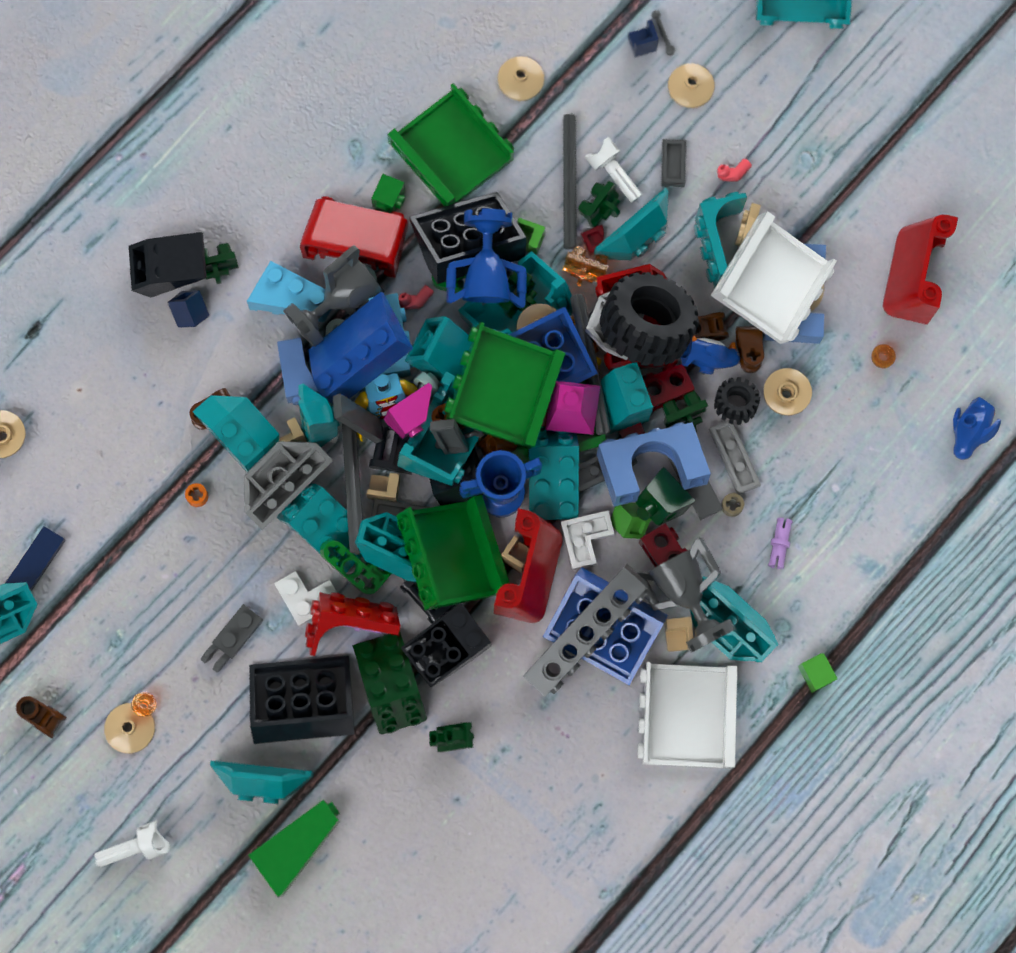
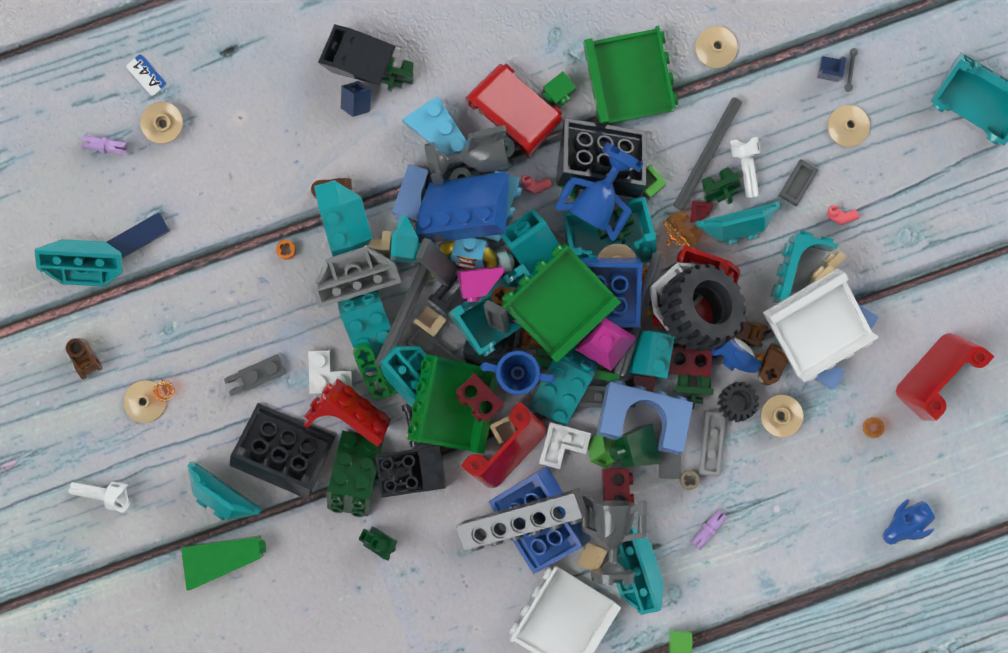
camera: 30 degrees right, 10 degrees up
(479, 523) = (484, 394): none -> dark red brick

